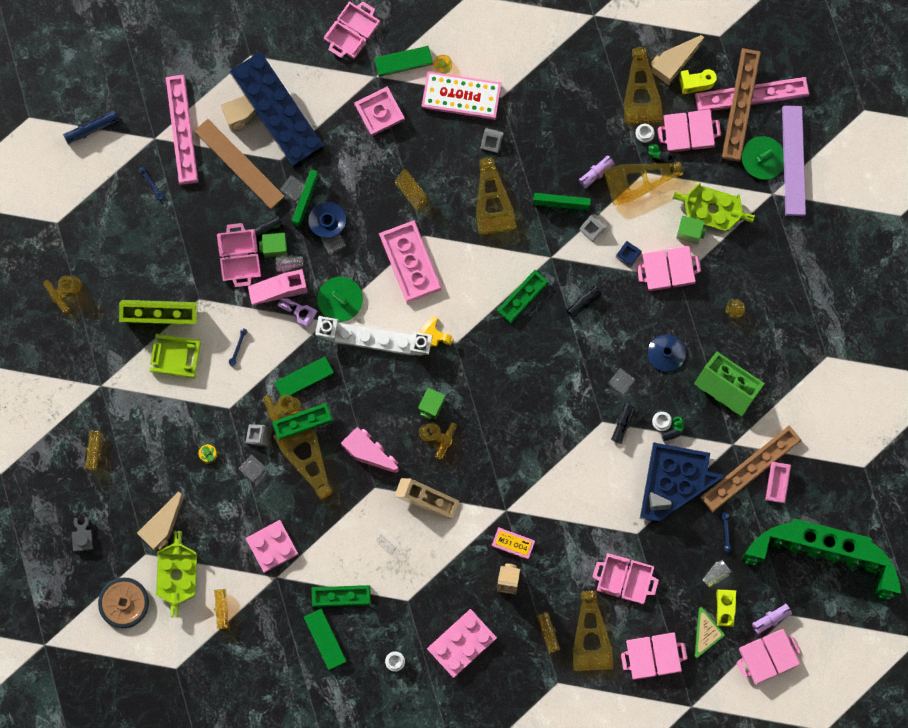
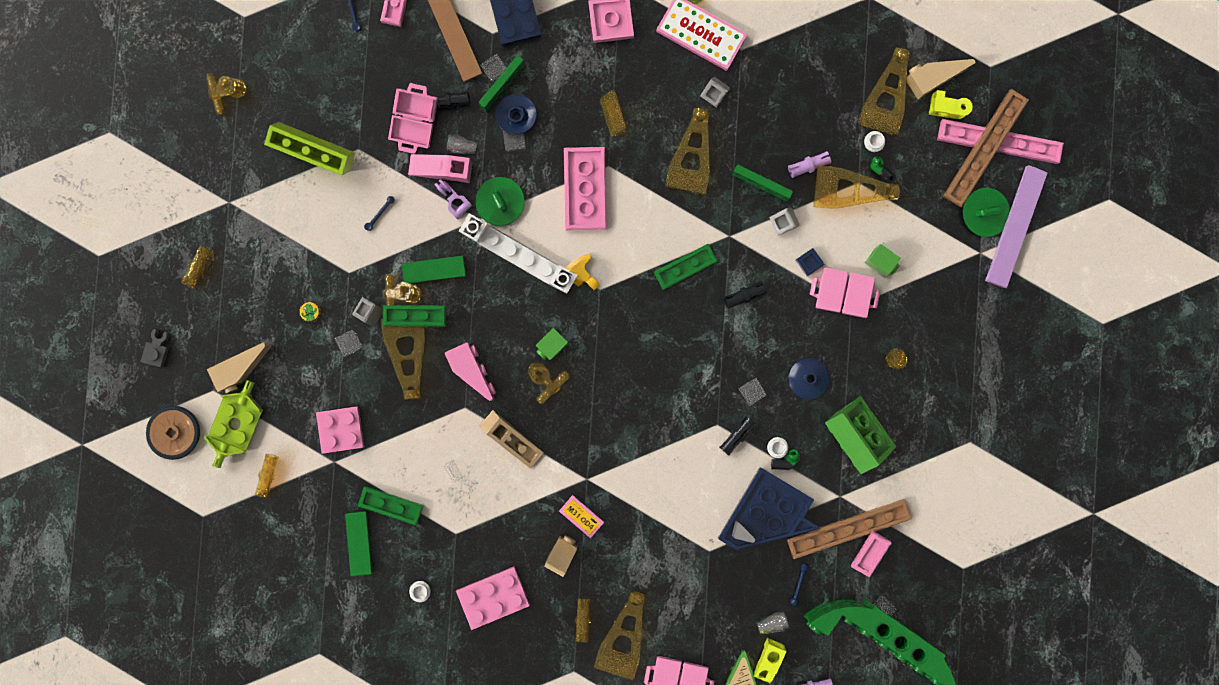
camera: 20 degrees right, 10 degrees up
(172, 356) = (310, 198): lime container -> none
(273, 245) = (452, 121): bright green brick -> none
(633, 580) = (687, 599): bright pink piece -> none
(698, 131) = (930, 158): bright pink piece -> none
(728, 206) = (930, 252): lime plate -> none

